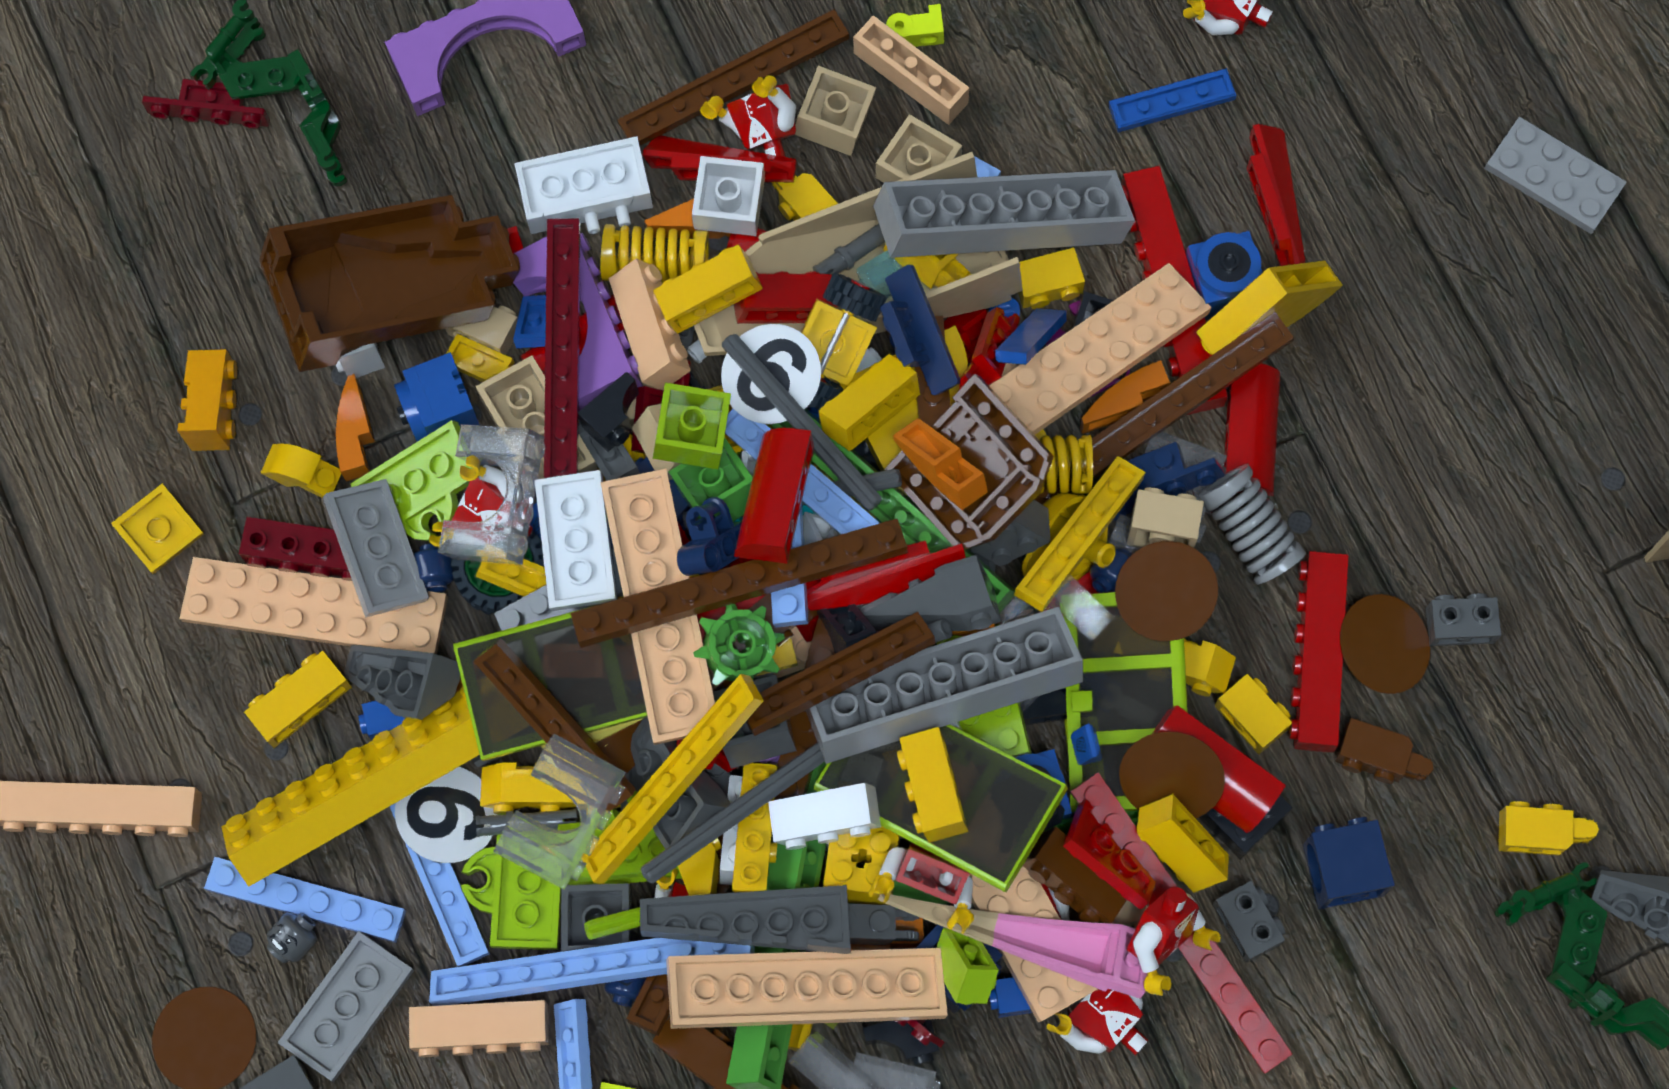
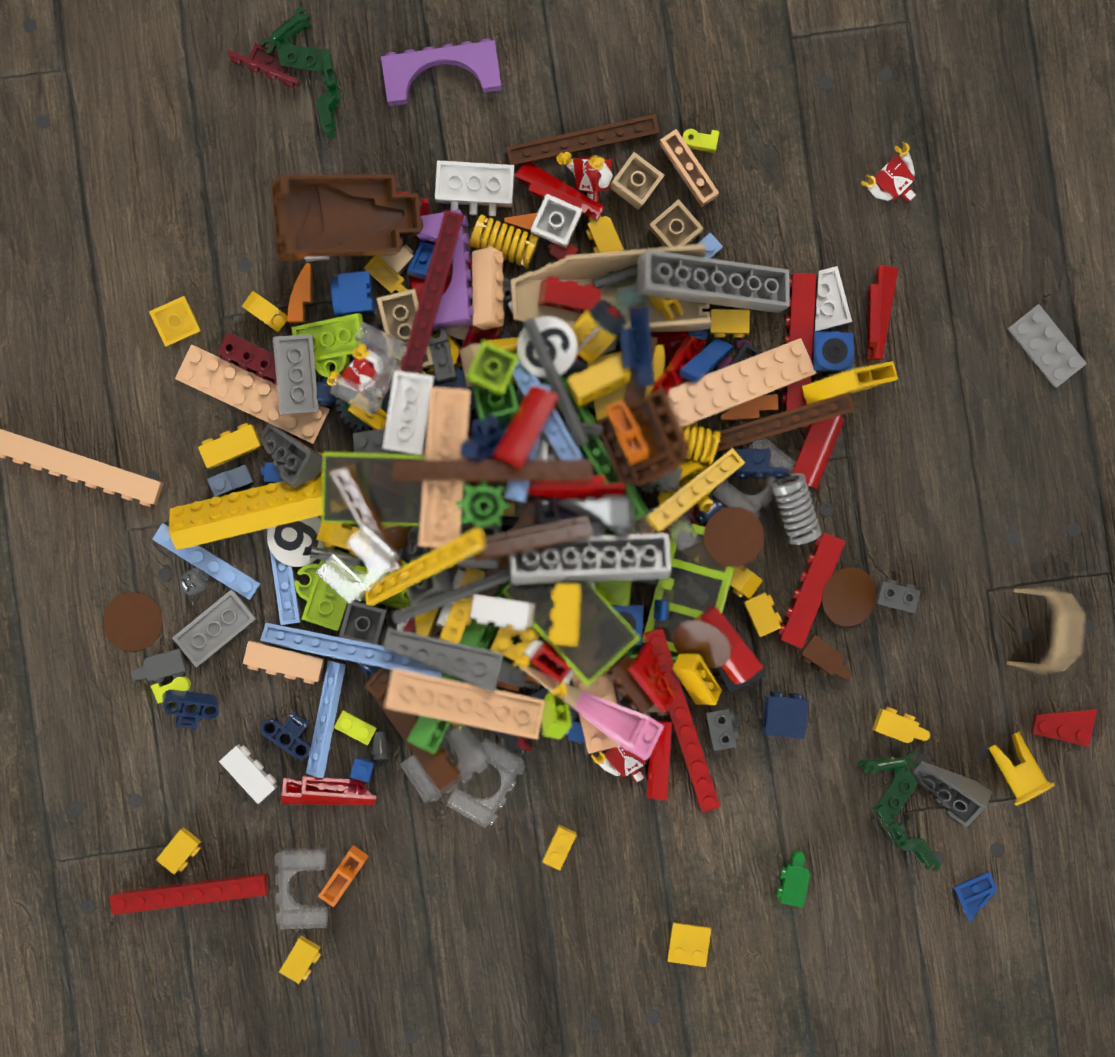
camera: 15 degrees right, 15 degrees up
(208, 400) = (222, 252): light orange wedge -> none
(310, 752) = (230, 481): none -> sand blue arch
(606, 414) = (447, 340): black arch -> none
(612, 923) = (379, 631): lime axle -> none
(707, 288) = (525, 283): yellow brick -> none
(1163, 929) = (669, 728): torso -> none
(1164, 518) = (746, 495): tan brick -> none
(1169, 1025) = (659, 764): none -> red brick
(1172, 100) = (838, 231): blue tile -> none
(1196, 200) = (830, 301): none -> white wing

